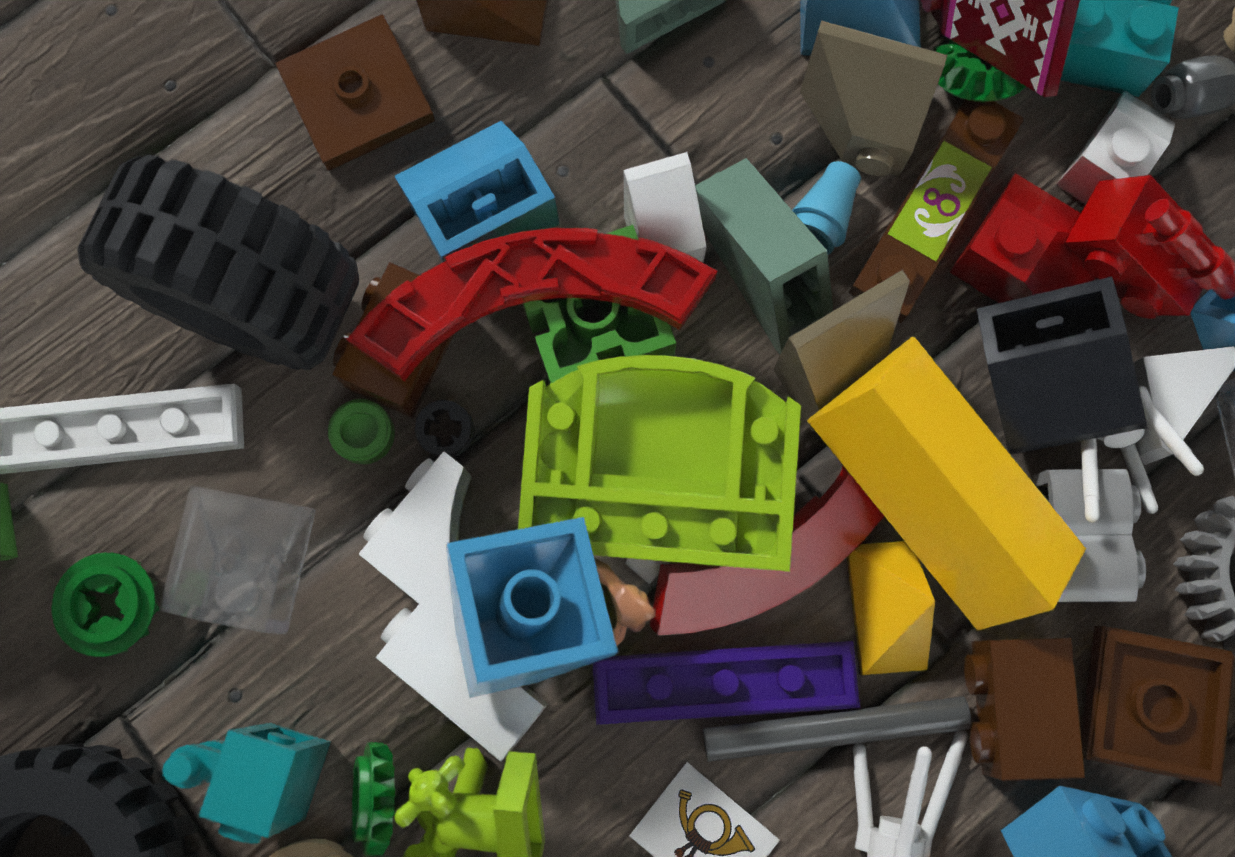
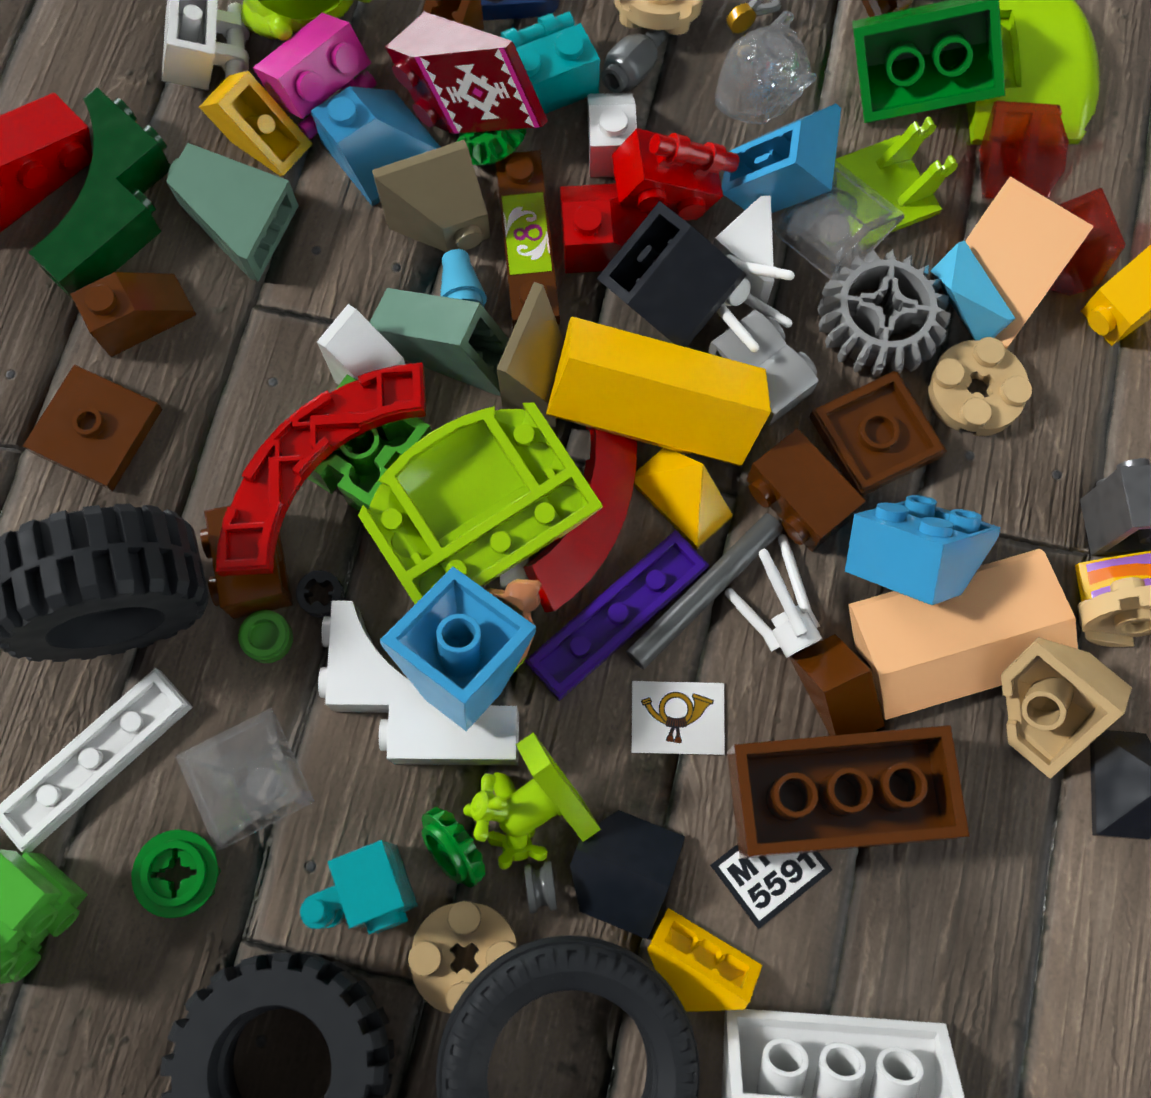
camera: 40 degrees left, 5 degrees down
(478, 191) = (227, 428): dark azure slope -> none

